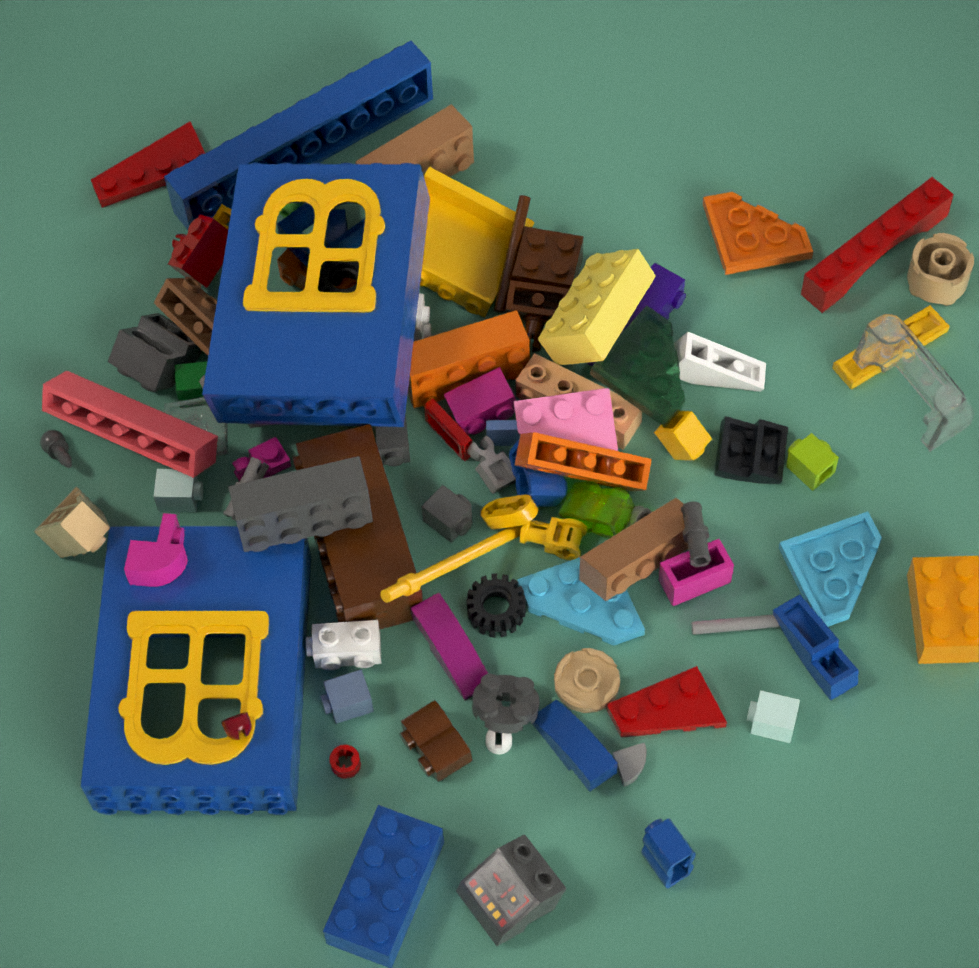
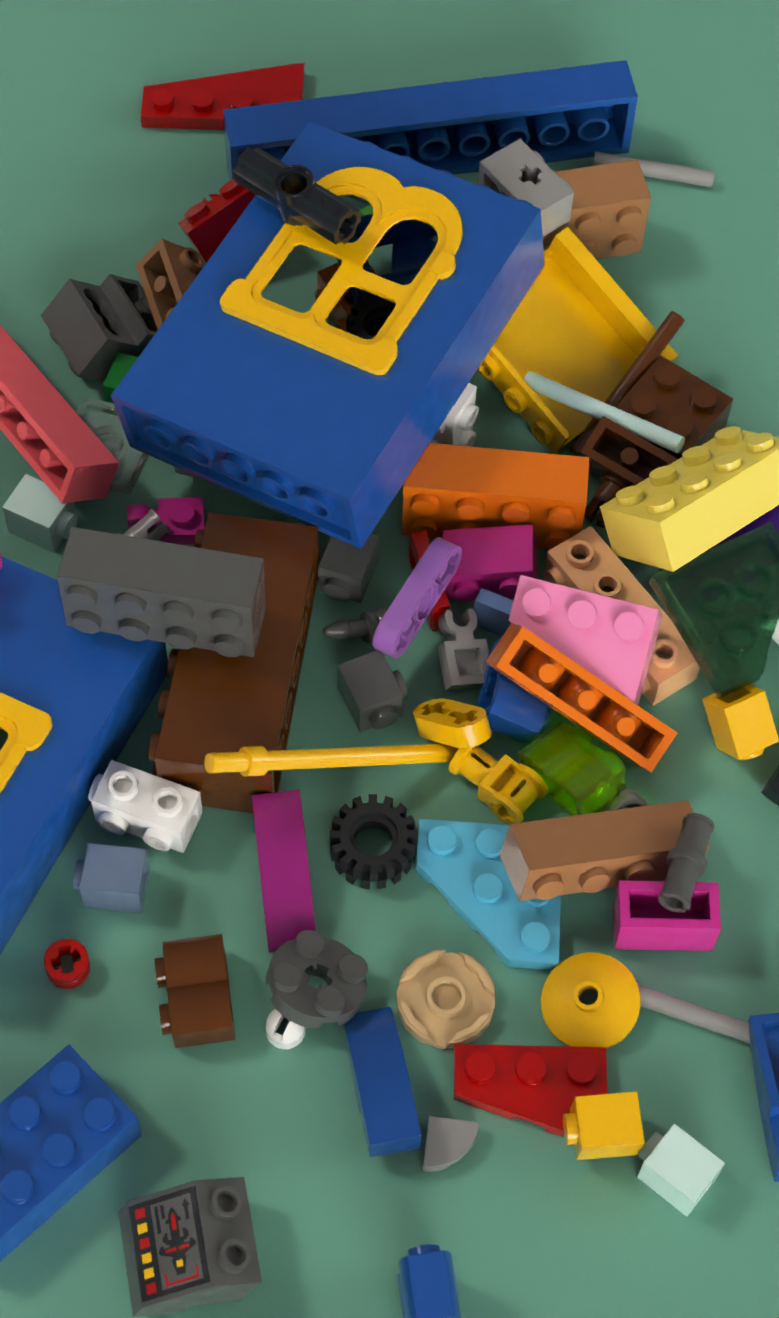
camera: 20 degrees right, 0 degrees up
(247, 214) = (297, 195): none -> black piece
(389, 146) = (525, 176): none -> light grey brick
(430, 471) = (362, 627): none -> dark grey bar
(451, 442) = (417, 597): none -> medium lavender beam
(458, 103) = (662, 170): none -> light grey bar
(504, 277) = (598, 409): none -> light aqua bar
(678, 658) = (597, 1024): none -> yellow dish
(720, 710) = (604, 1126): none -> yellow brick

